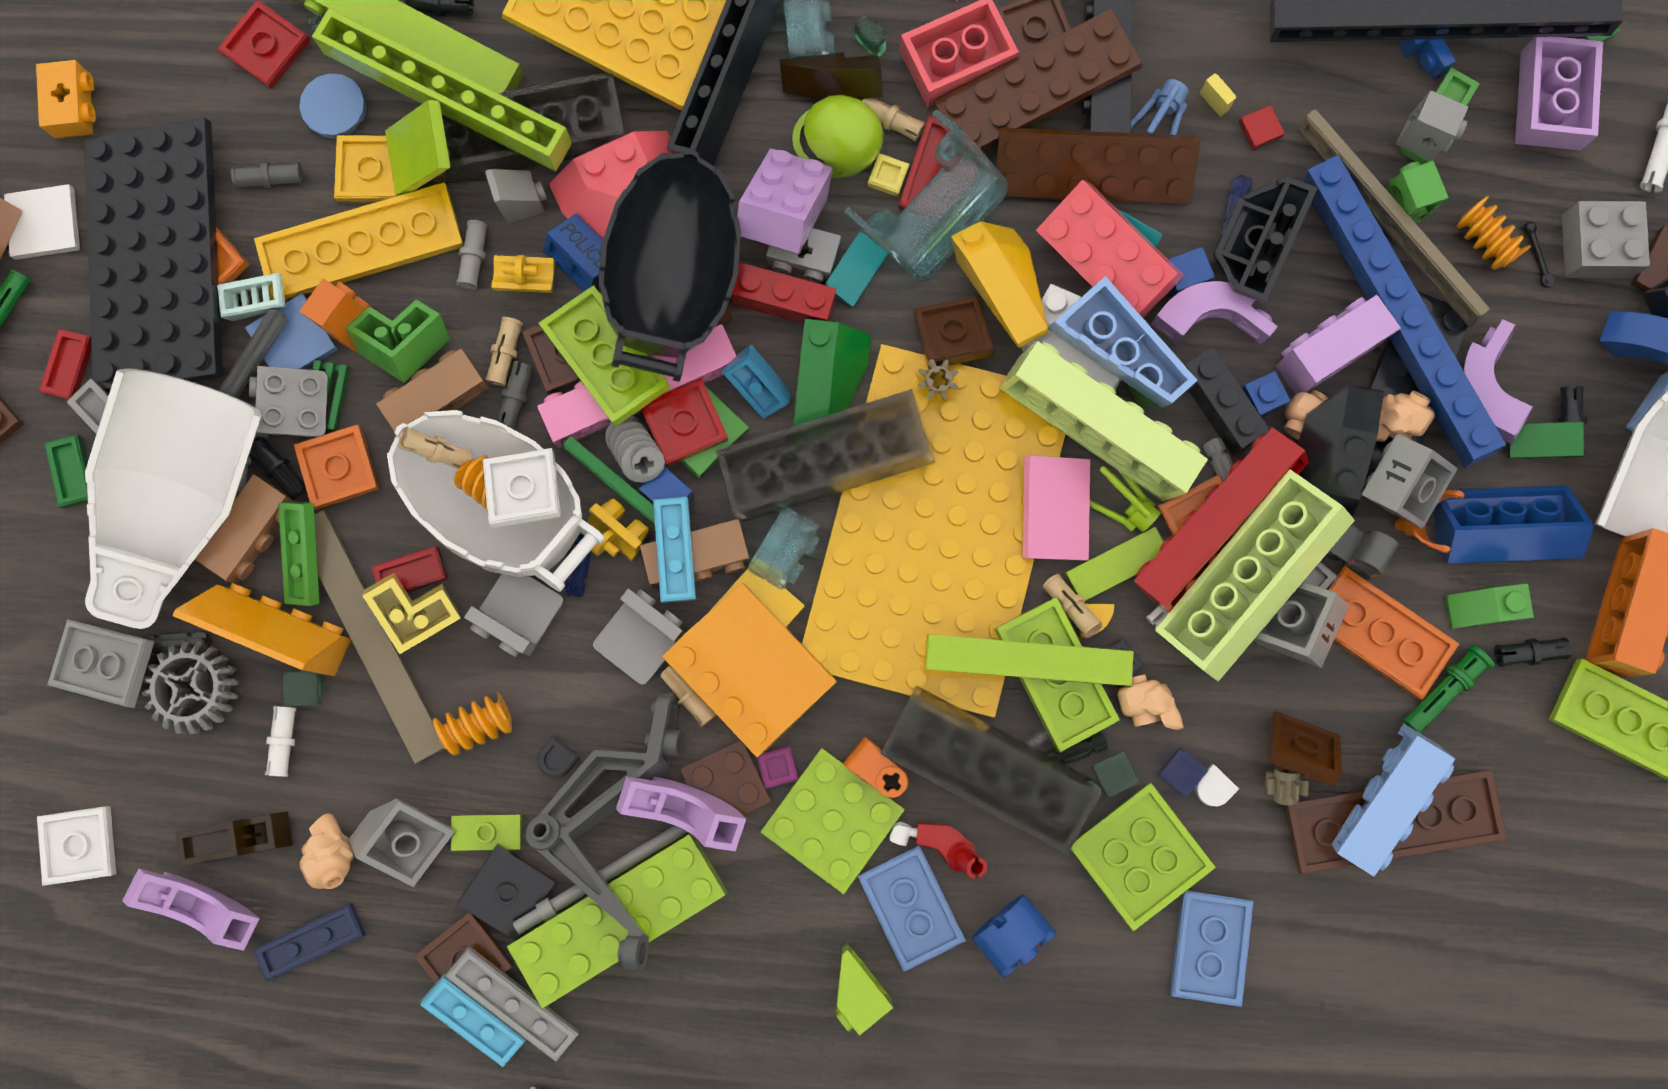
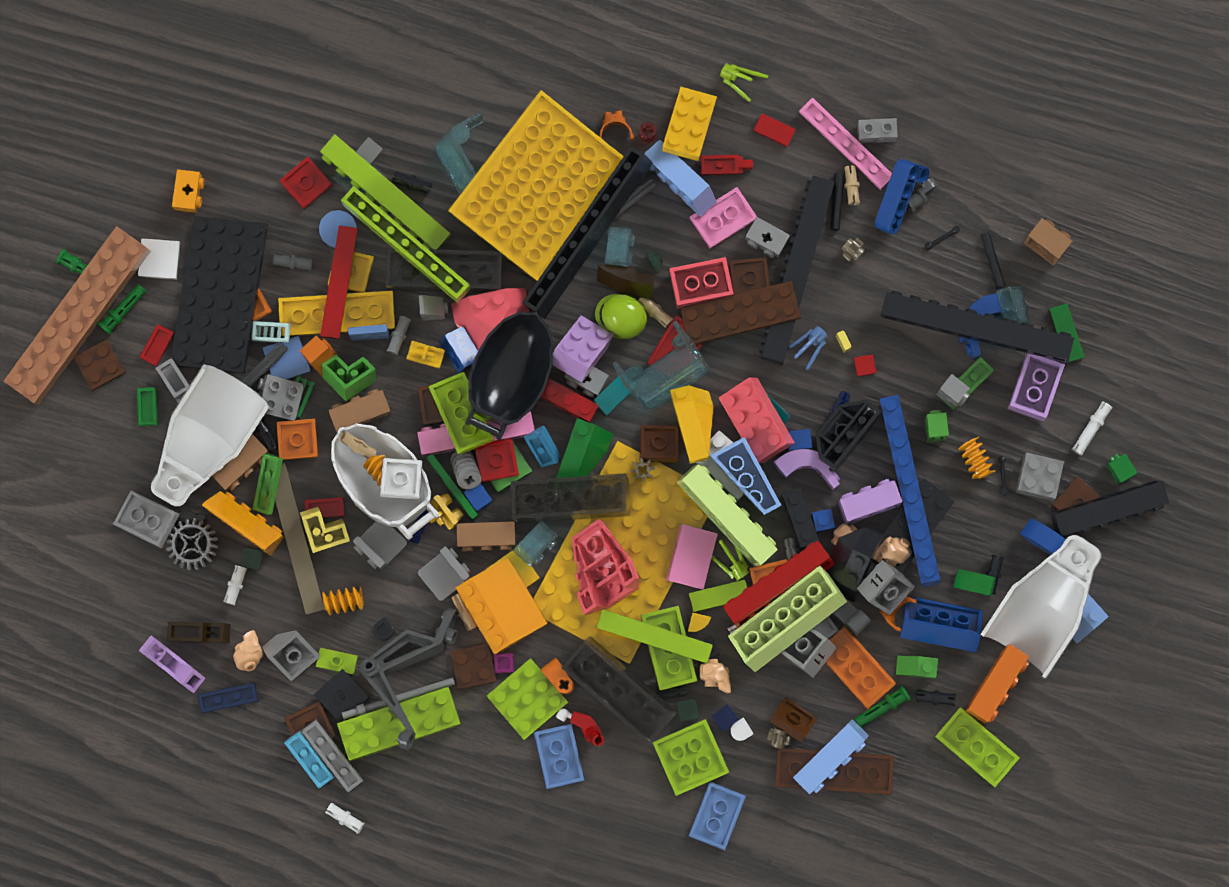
camera: 10 degrees right, 0 degrees up
(76, 845) = (111, 616): white tile -> none
(350, 188) = (339, 282): none -> red tile
(416, 258) = (368, 332): none -> medium blue tile
(417, 147) = (383, 272): lime tile -> none
(503, 351) = (404, 395): tan pin -> none
(514, 394) = (405, 422): dark grey pin -> none
(674, 549) = (475, 530): medium azure tile -> none
(696, 811) = (448, 671): lavender arch -> none
(859, 995) = (519, 792): lime slope -> none
(888, 175) = (645, 343): light yellow tile -> none
(912, 563) = (603, 567): none -> coral wedge
(1013, 935) = (610, 781): blue brick -> none
(1073, 606) = (686, 612): tan pin -> none
(1115, 163) = (771, 368): reddish brown plate -> none
(1397, 222) = (921, 436): dark tan tile -> none
(1504, 410) = (945, 544): lavender arch -> none

